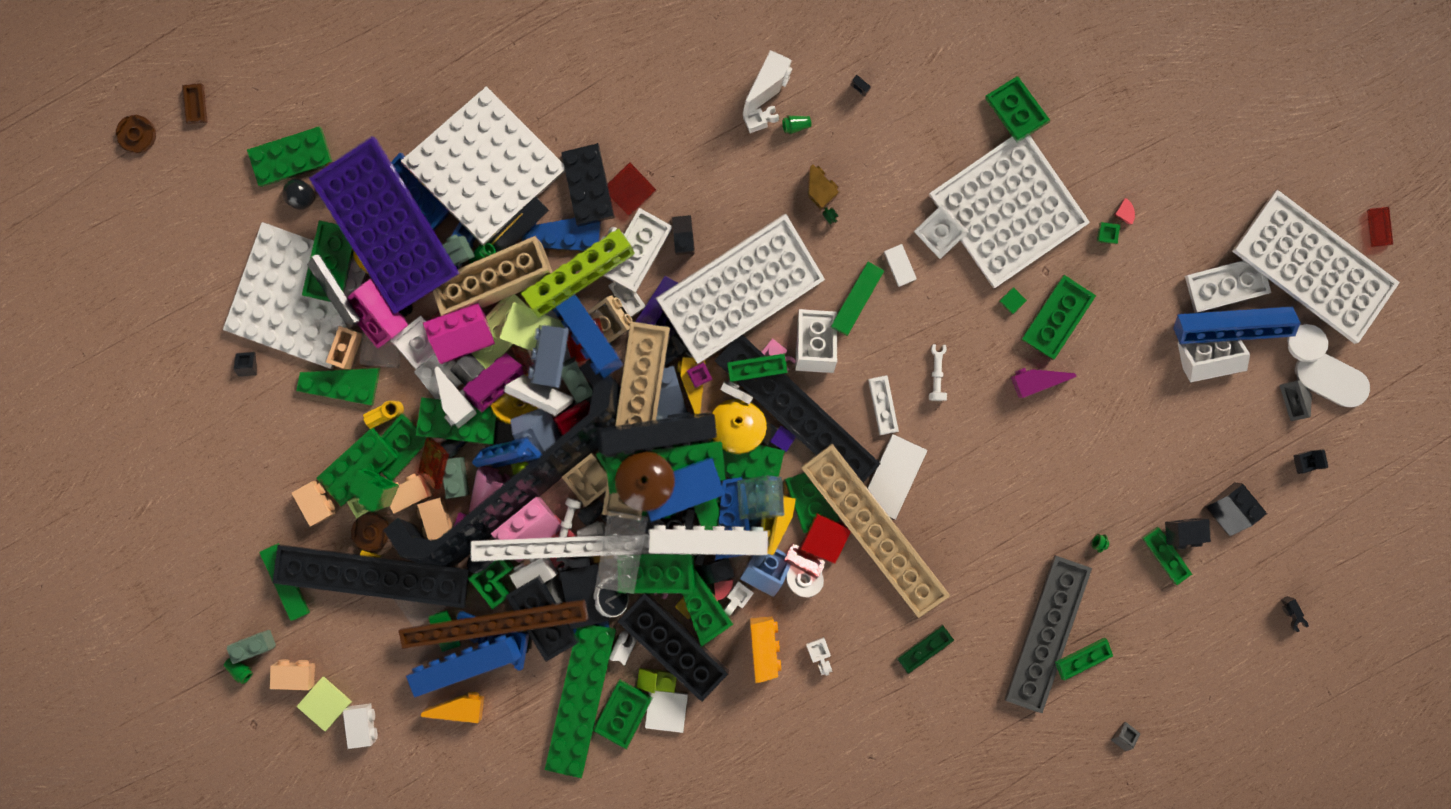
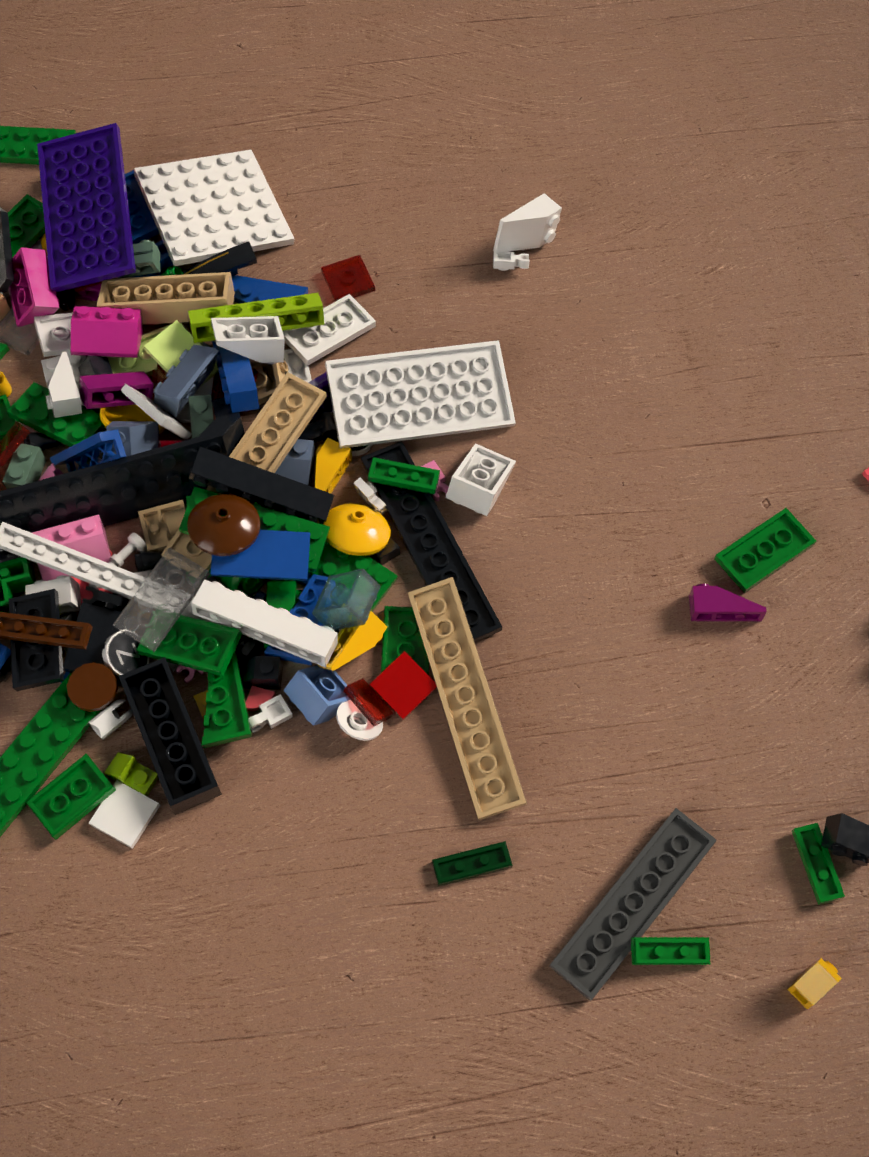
camera: 20 degrees right, 25 degrees down
(298, 194) = (21, 175): black hair -> none
(585, 301) = (251, 337): none -> white slope
(588, 185) = (307, 258): black plate -> none
(601, 635) = (92, 687): none -> reddish brown tile
(683, 235) = (382, 335): black slope -> none
(699, 375) = (337, 459): magenta tile -> none
(765, 648) = (274, 779): light orange slope -> none
(783, 438) = (401, 564): dark purple tile -> none
(794, 124) = (545, 277): green cone -> none
(819, 188) = (546, 341): pearl gold slope -> none
(819, 651) = (339, 813): white plate -> none
(830, 215) = (546, 367): dark green plate -> none
(857, 298) = (543, 452): green tile -> none
(860, 85) = (625, 265): black tile -> none
(883, 405) = (530, 571): white tile -> none
(896, 474) = (516, 648): white tile -> none
(900, 265) = (604, 440): white tile -> none
(937, 395) = (596, 581): white piece -> none
(941, 231) = (661, 420): white tile -> none
(1010, 208) = (745, 427): white plate -> none
(1012, 300) = (718, 517): green tile -> none
(1017, 109) = (785, 338): green tile -> none
(1100, 543) = (737, 816): green plate -> none
(1108, 233) = (850, 486): green plate -> none
(1126, 737) = (694, 1082): dark grey slope -> none
(1188, 645) = (814, 983): none -> yellow slope

